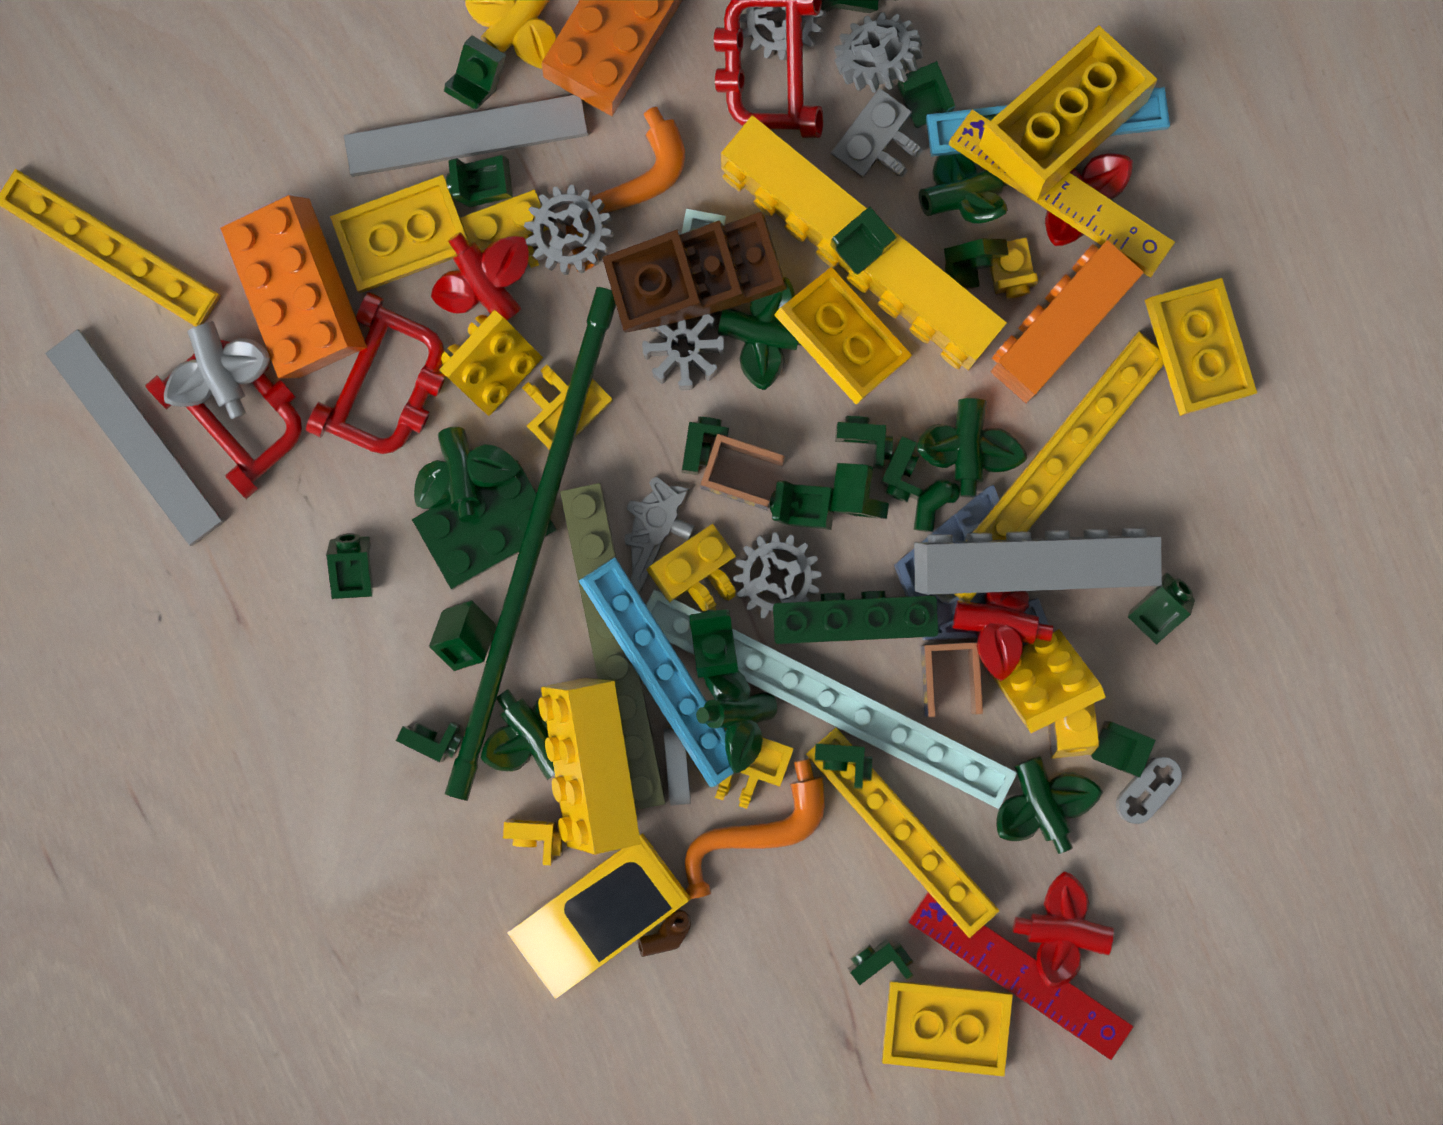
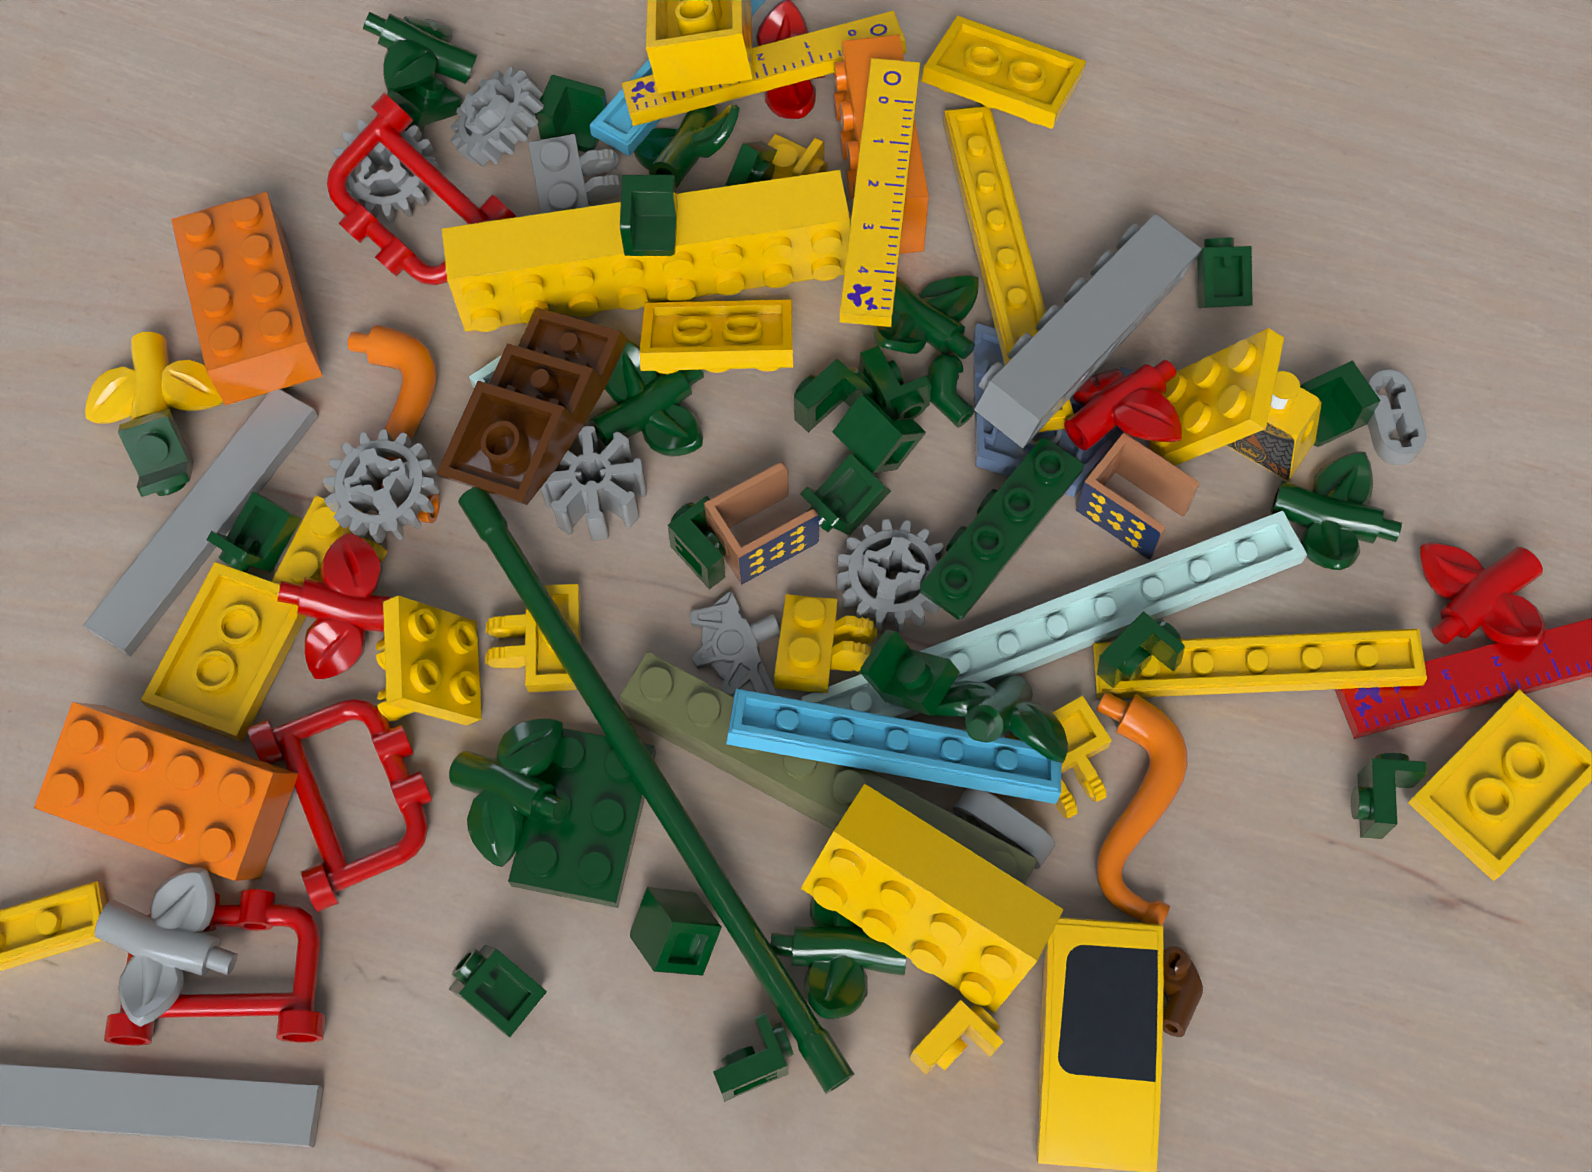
camera: 50 degrees left, 20 degrees down
(1010, 363) = (880, 193): none -> yellow tile

